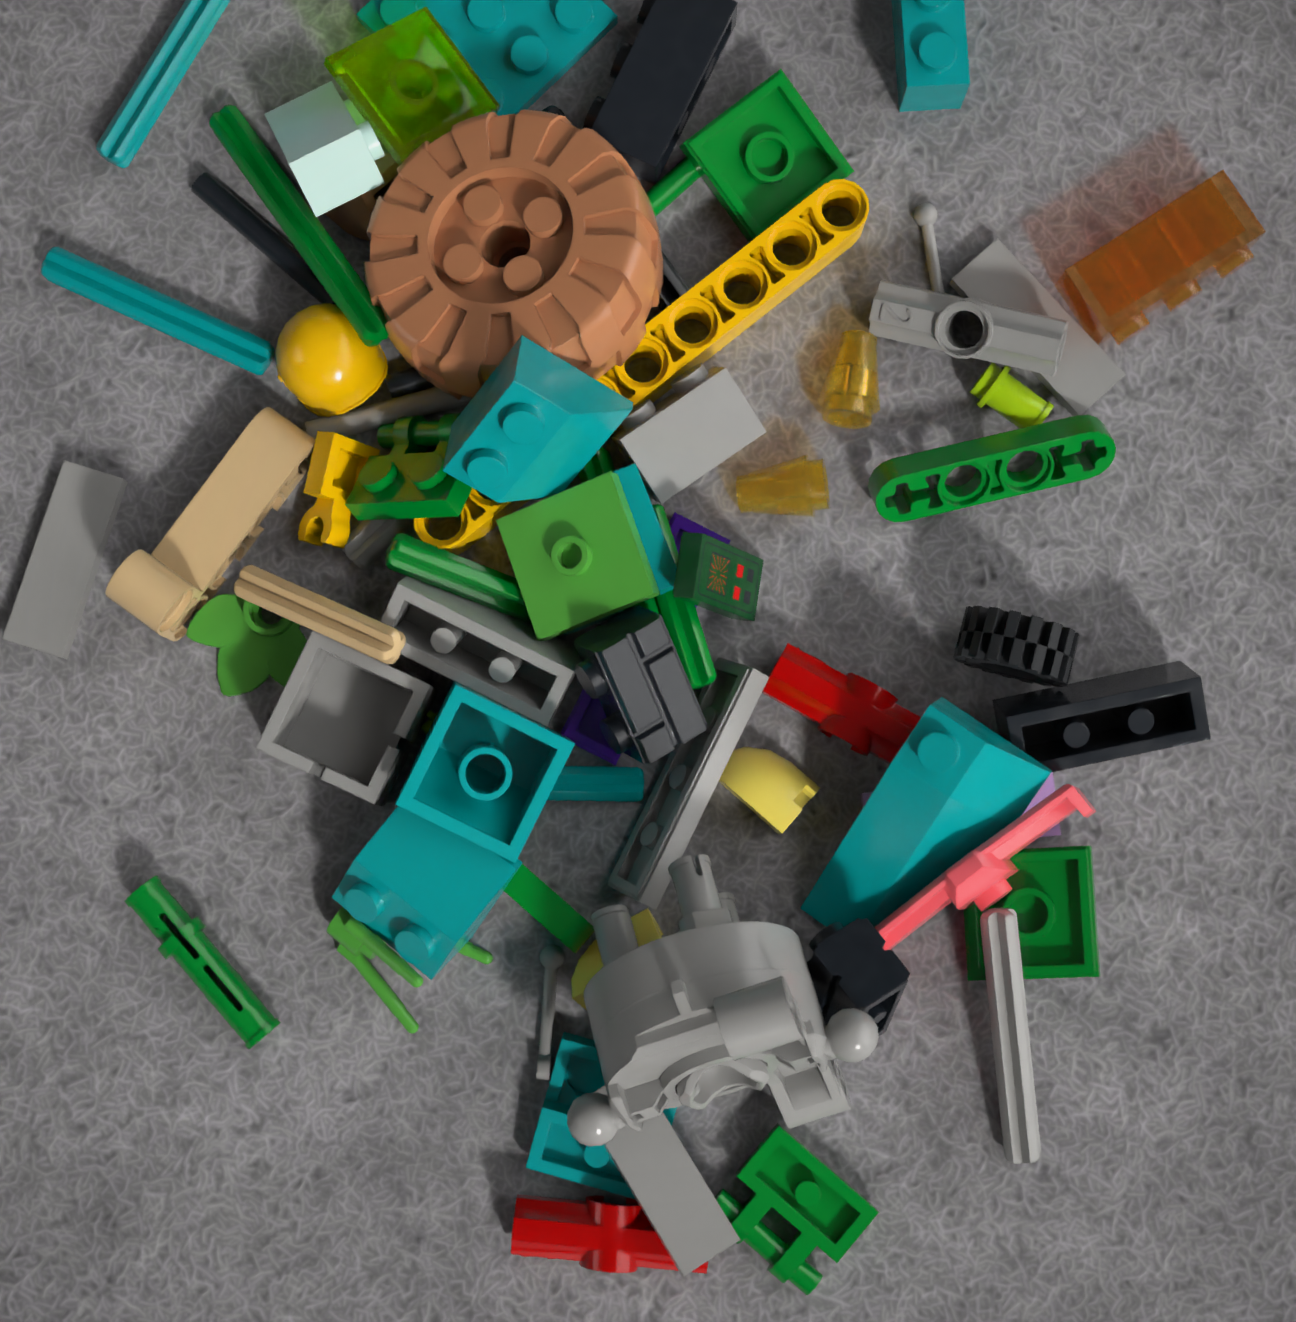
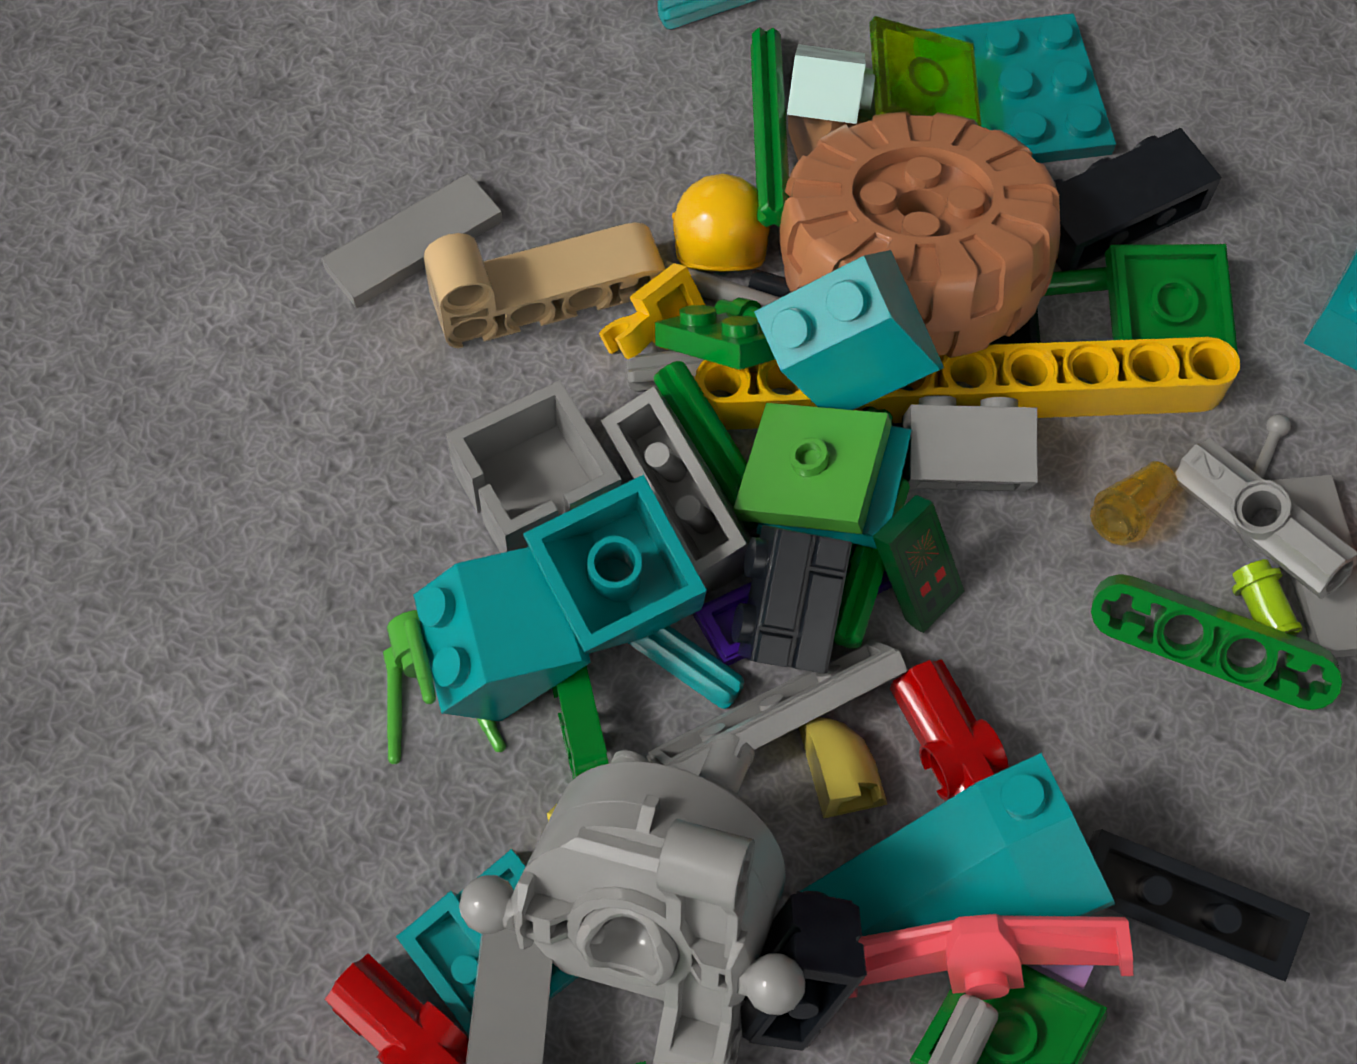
camera: 30 degrees right, 20 degrees down
(154, 901) = (271, 516): green pin -> none
(157, 310) = (618, 126): teal axle -> none
(247, 644) = (501, 372): bright green plate -> none
(259, 234) = (731, 120): black bar -> none
(320, 614) = (582, 383): tan axle -> none
(551, 958) = (553, 784): light grey hinge -> none
(785, 488) = (1023, 545): clear yellow cone -> none
(1016, 646) = (1147, 788): black tyre -> none

